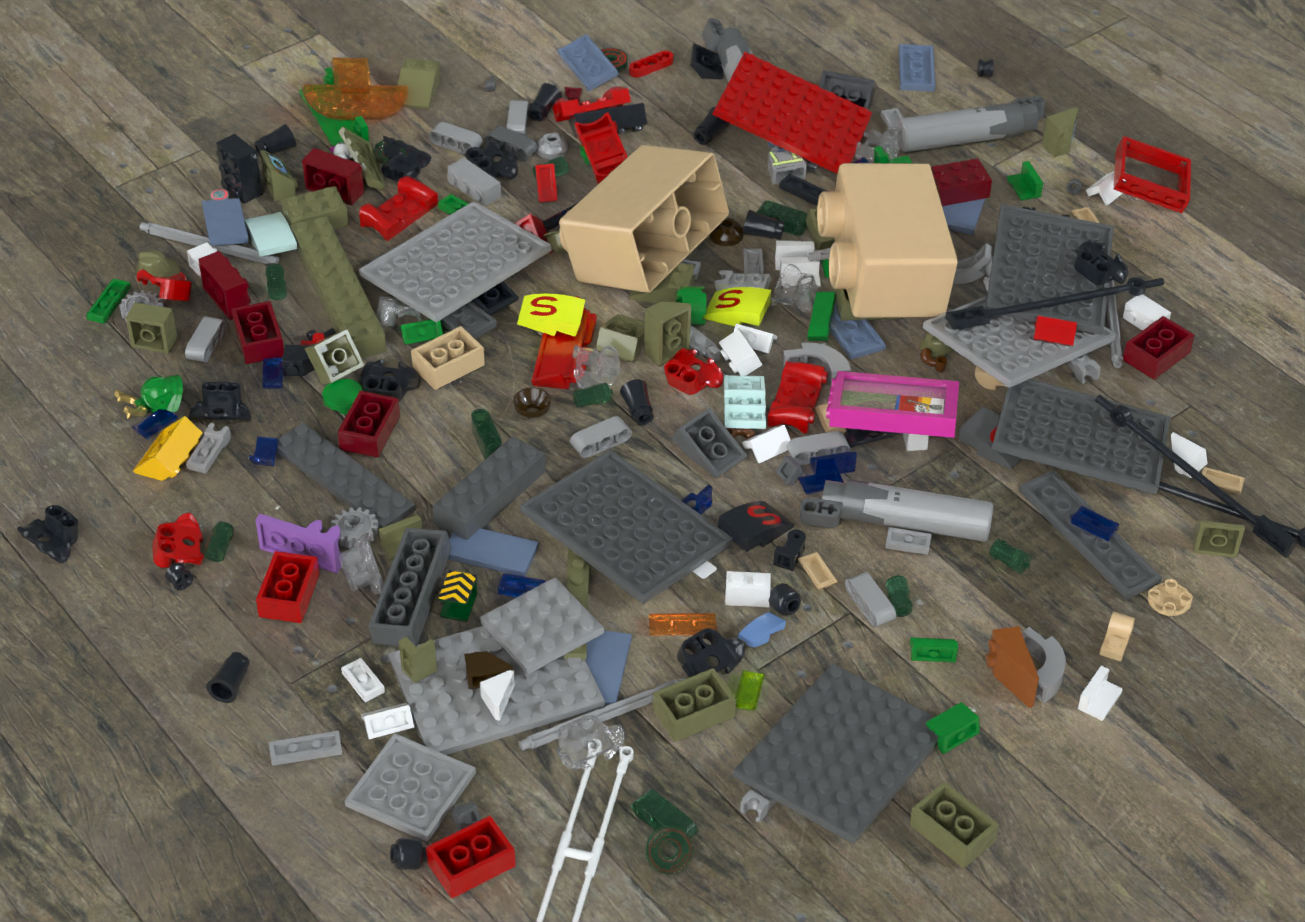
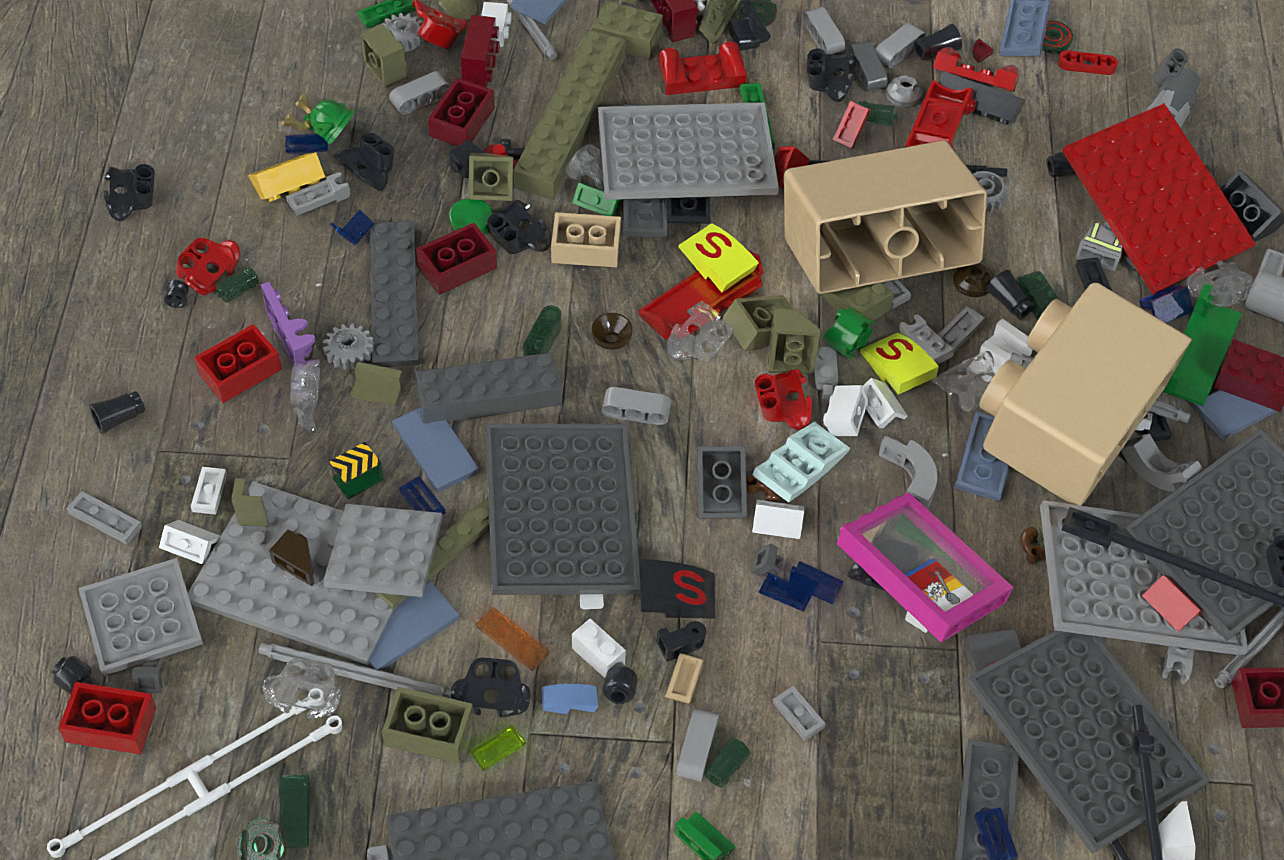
camera: 40 degrees right, 10 degrees up
(270, 234) = (568, 27): light aqua slope -> none
(272, 373) = (438, 159): clear blue tile -> none
(275, 282) = (524, 75): clear green piece -> none
(410, 586) = (324, 434): dark grey brick -> none
(474, 182) = (793, 84): light grey brick -> none
(497, 692) = (281, 586): white slope -> none
(591, 395) = (675, 361): clear green piece -> none
(637, 400) = (704, 393): black plant -> none
(703, 499) = (652, 530): clear blue bracket -> none
(706, 63) = (1138, 90): black slope -> none
(797, 395) = (855, 491): red piece -> none
(817, 445) = (817, 554): light grey beam -> none
(821, 316) = (963, 428): green tile -> none
(898, 509) = (820, 677): light grey piece -> none
(1011, 556) = (878, 806): clear green piece -> none

